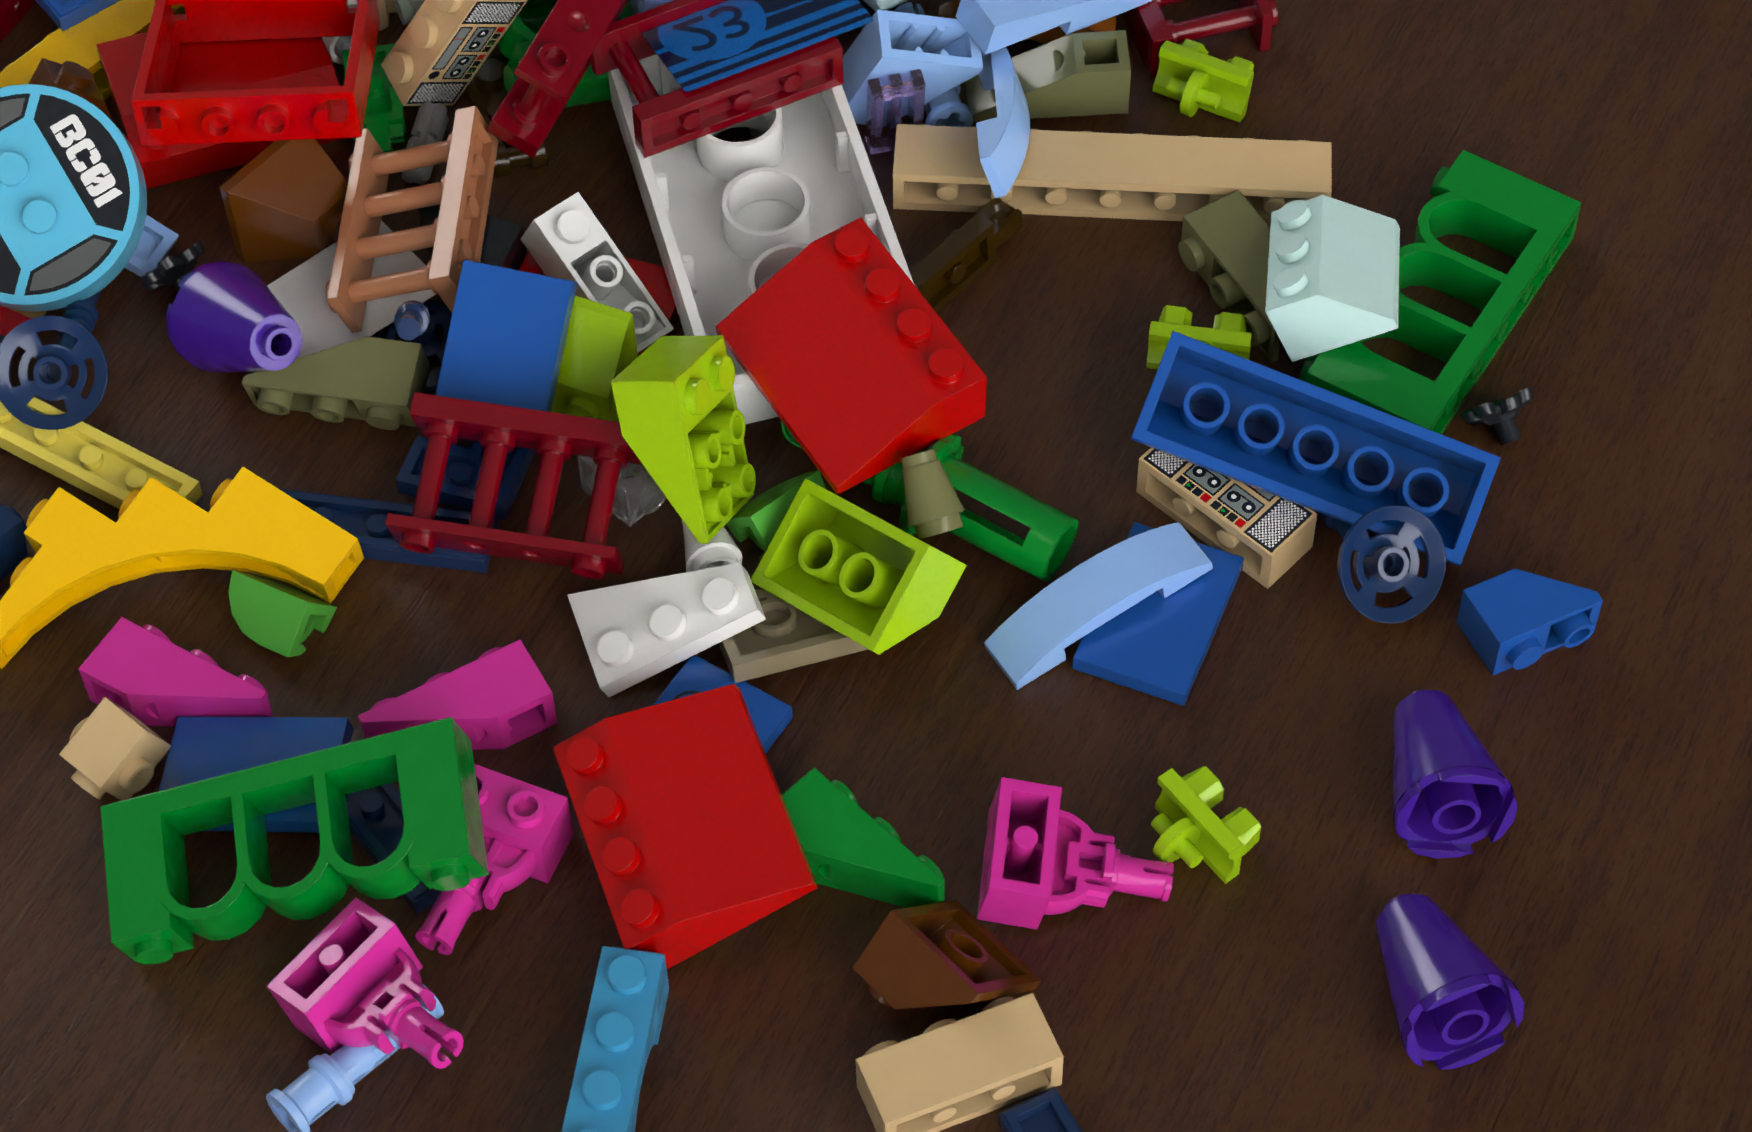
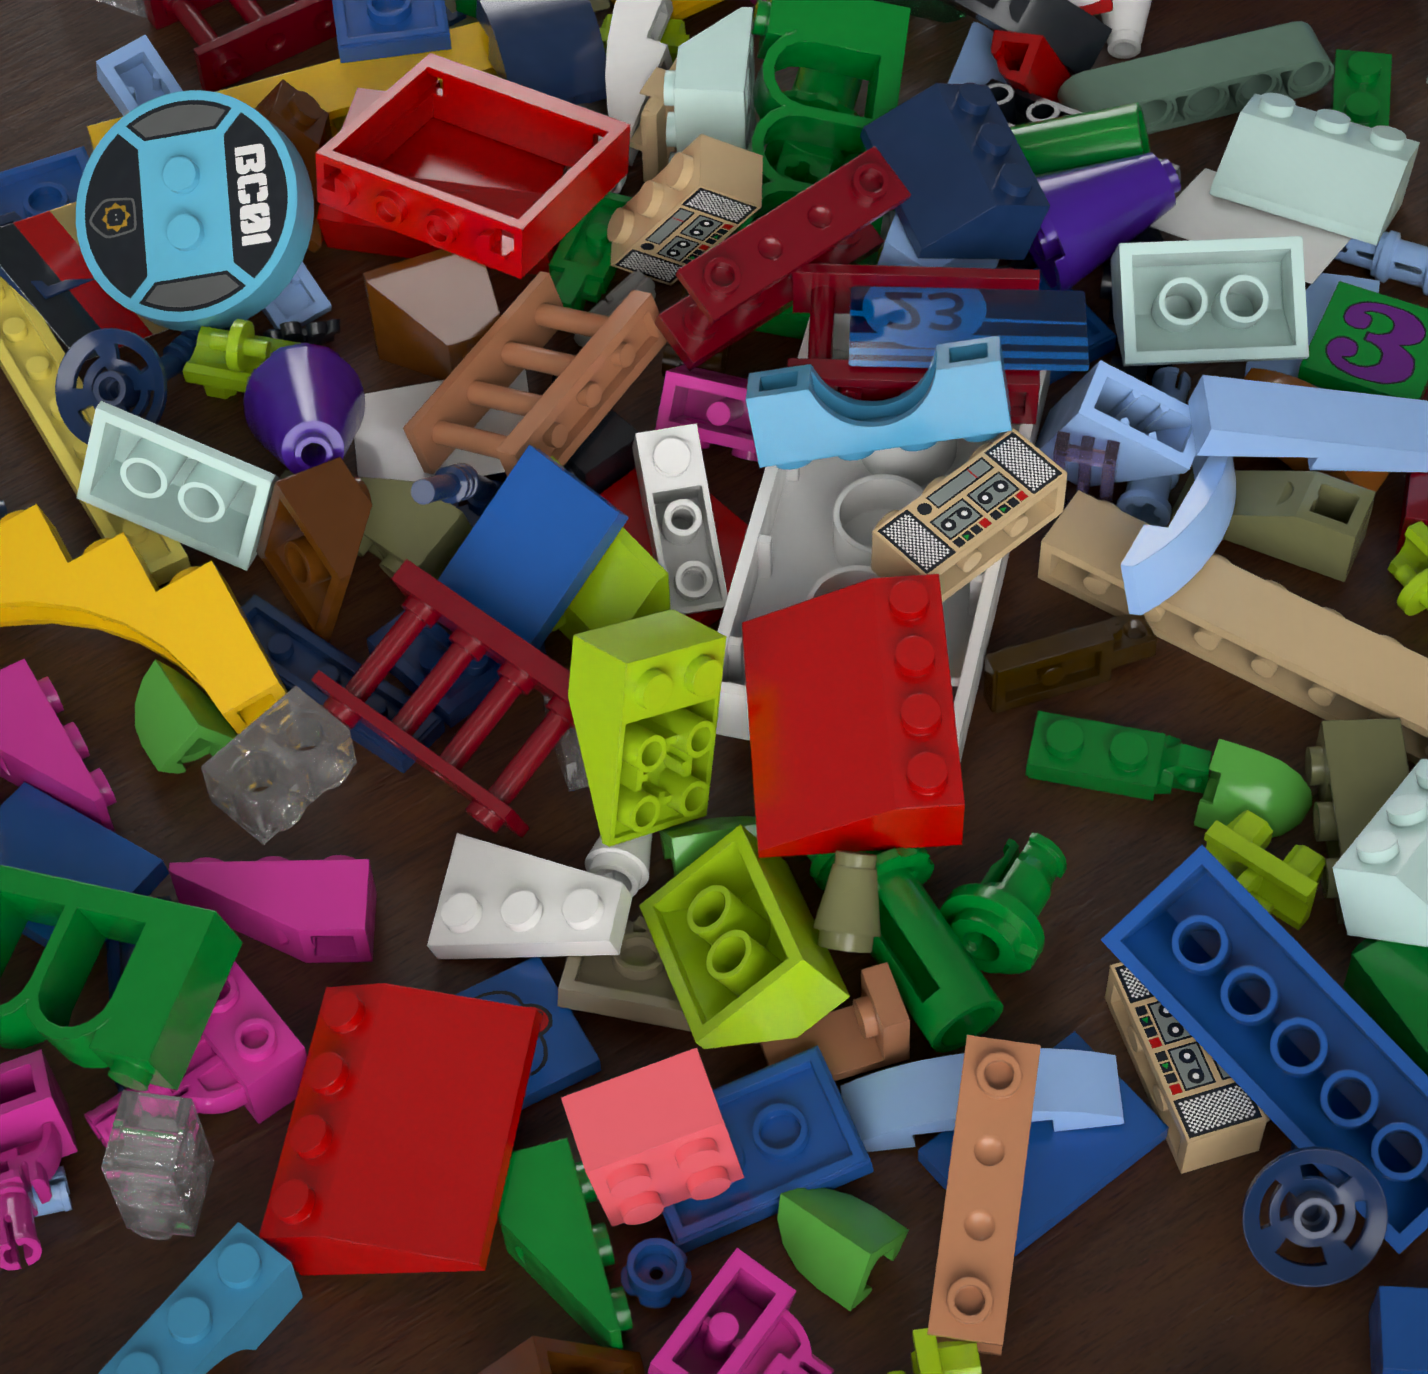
camera: 30 degrees right, 0 degrees up
(132, 309) = (228, 358): none -> lime hips
(165, 422) = (175, 486): none -> light aqua slope
(315, 421) = (314, 540): none -> reddish brown slope
(379, 605) = (272, 757): none -> clear brick
(506, 938) = (158, 1164): none -> clear brick
(597, 172) = (712, 402): none -> dark pink brick
(786, 79) = (806, 420): none -> arch
(845, 168) = (971, 515): none -> brick
(888, 731) = (653, 1139): none -> coral brick
(939, 823) = (653, 1255): none -> blue plate
(947, 717) = (786, 1136): none -> blue tile
(977, 603) = (856, 1037): none -> nougat bracket
(1032, 453) = (1001, 914): none -> green piece
(1037, 315) = (1114, 758): none -> green hinge
(1054, 749) = (836, 1240): none -> bright green brick
(1150, 285) = (1252, 782): none -> bright green brick
(1162, 649) = (984, 1193): none -> nougat fence

